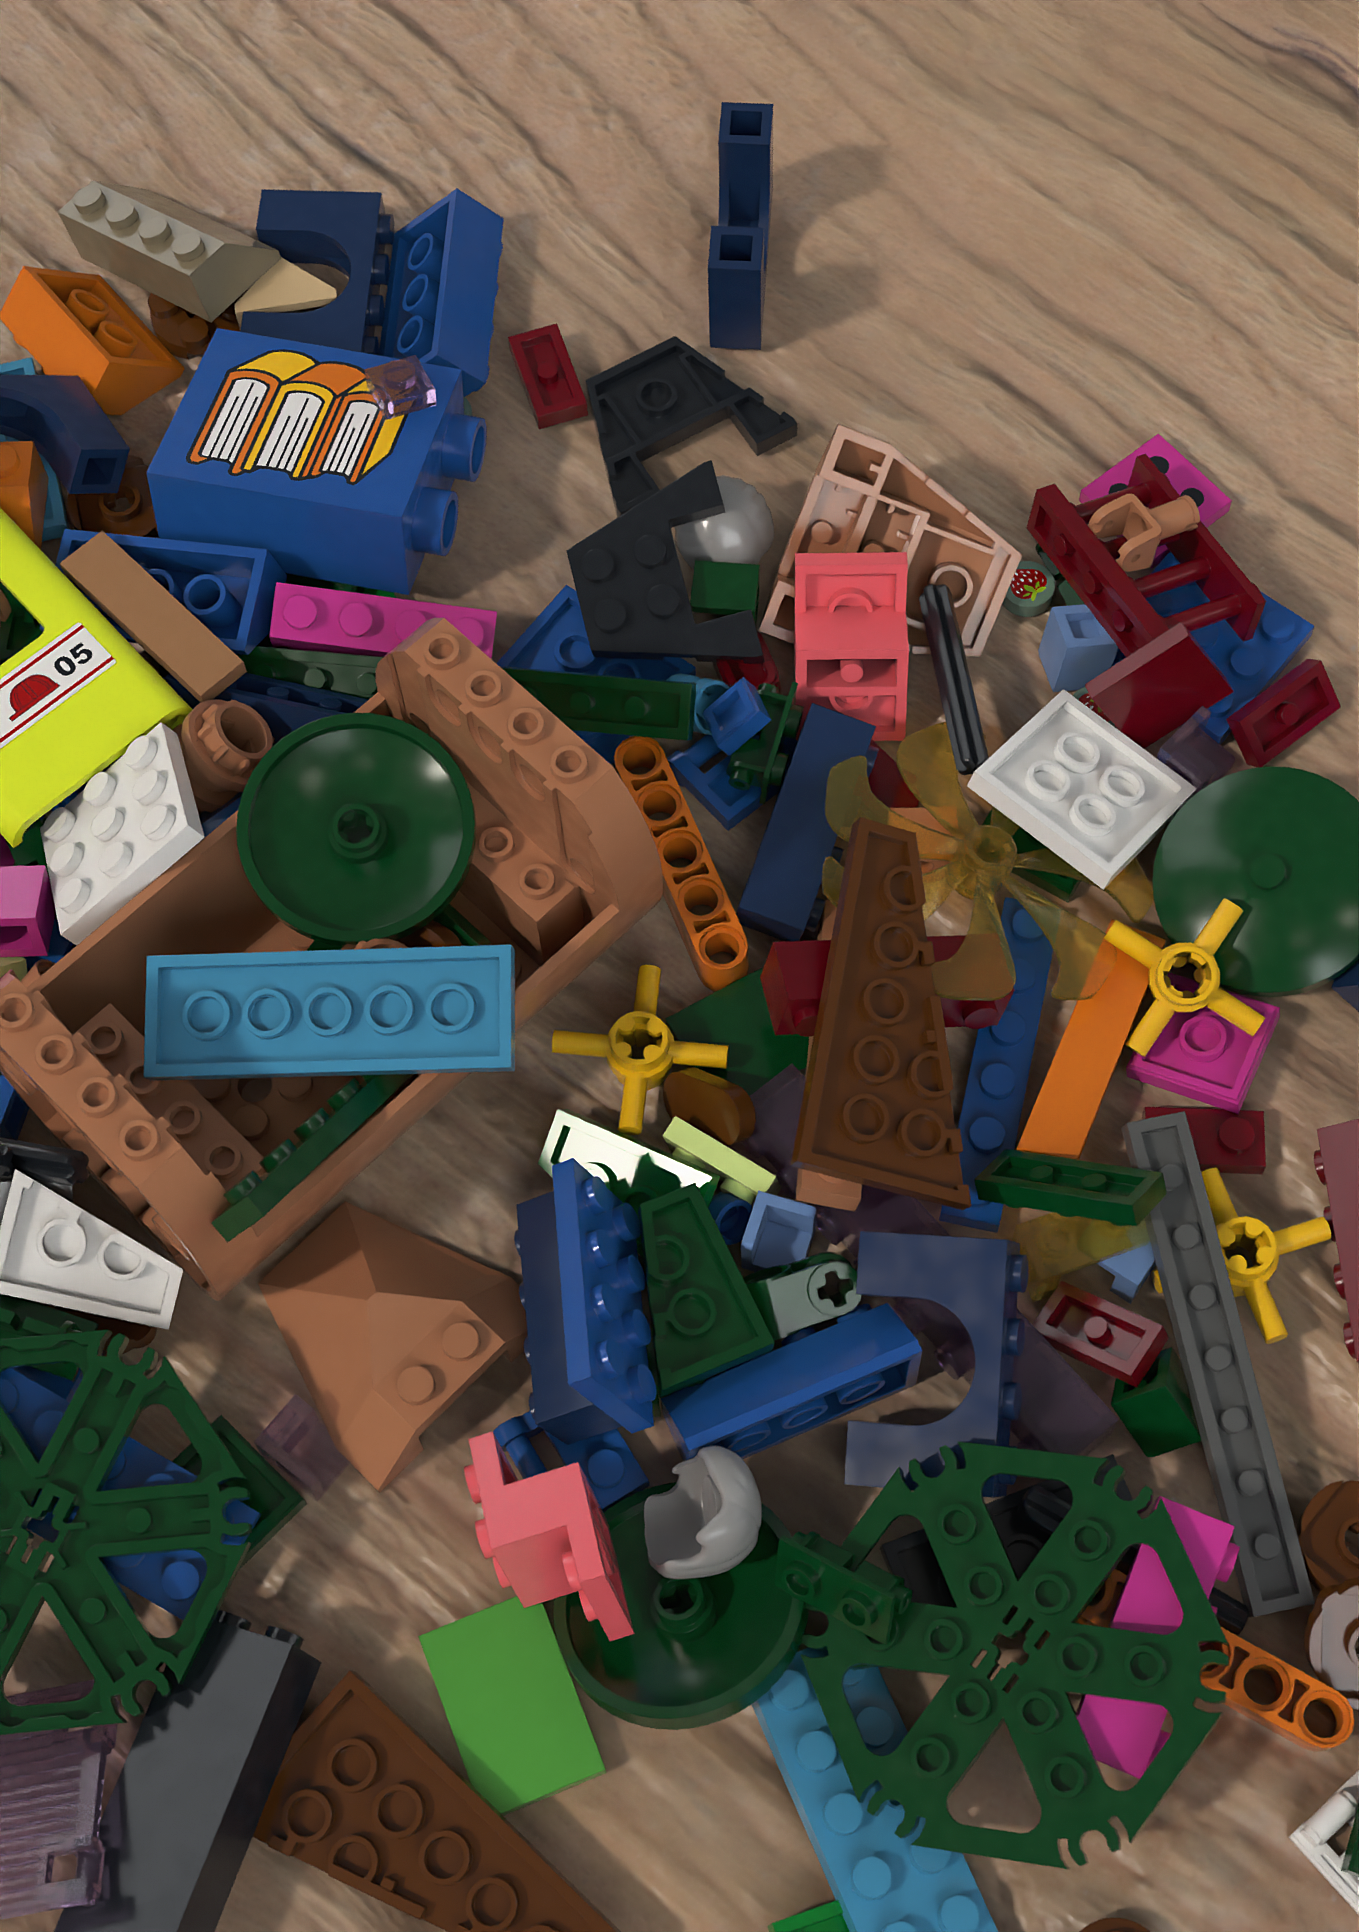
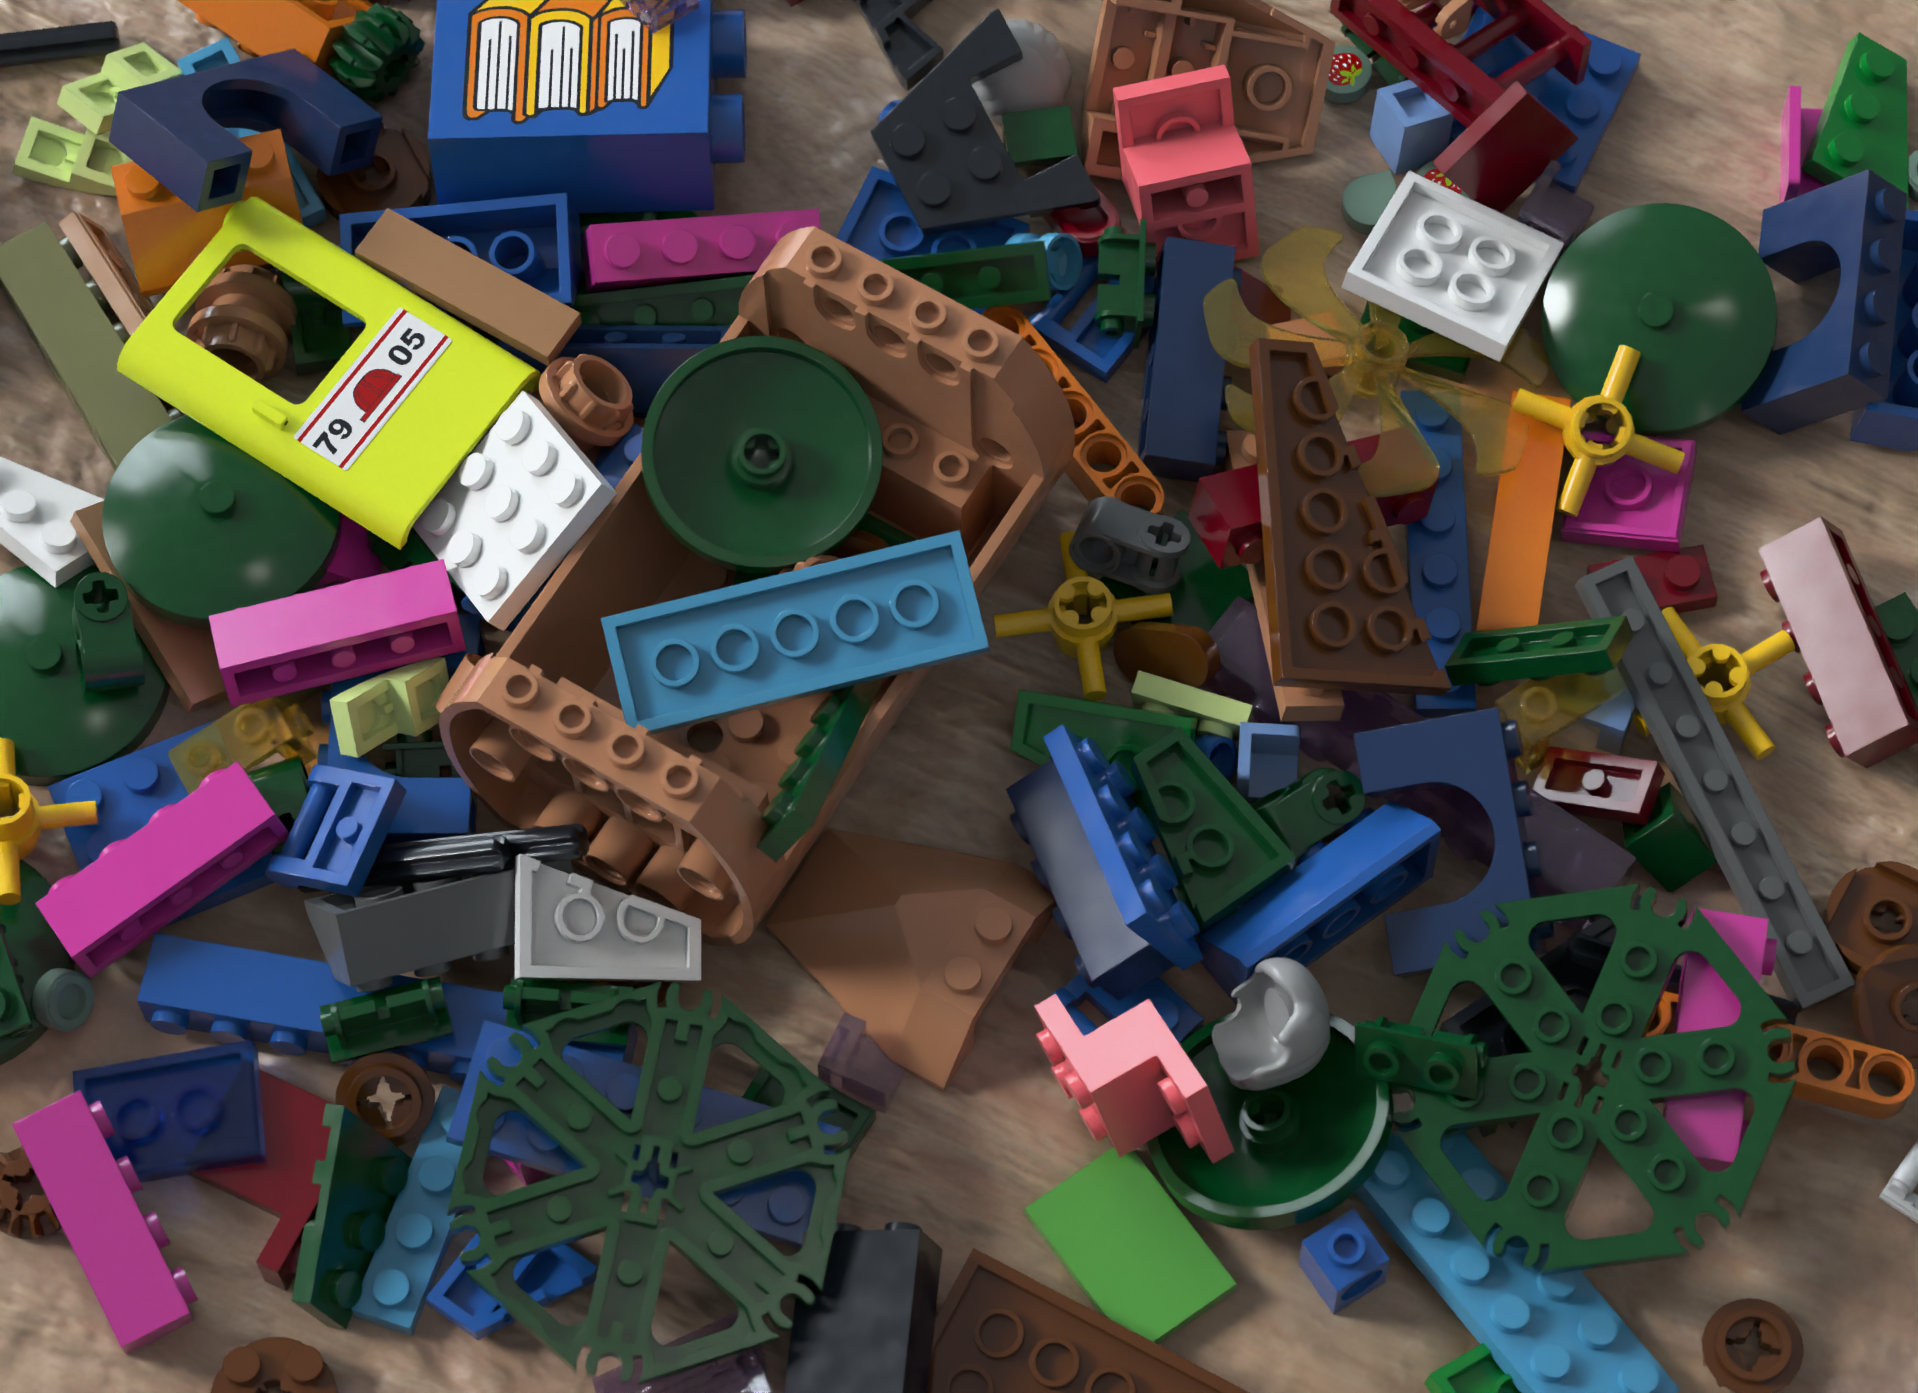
camera: 15 degrees left, 0 degrees up
(149, 393) = (376, 52): none -> dark green gear
(697, 988) = (1125, 542): none -> dark grey piece
(717, 1775) = (1343, 1261): none -> blue brick
(736, 716) = (1092, 265): blue tile -> none
(953, 678) = (1298, 182): black axle -> none
(1017, 707) = (1367, 199): none -> sand green tile
(1284, 712) = (1631, 149): dark red plate -> none

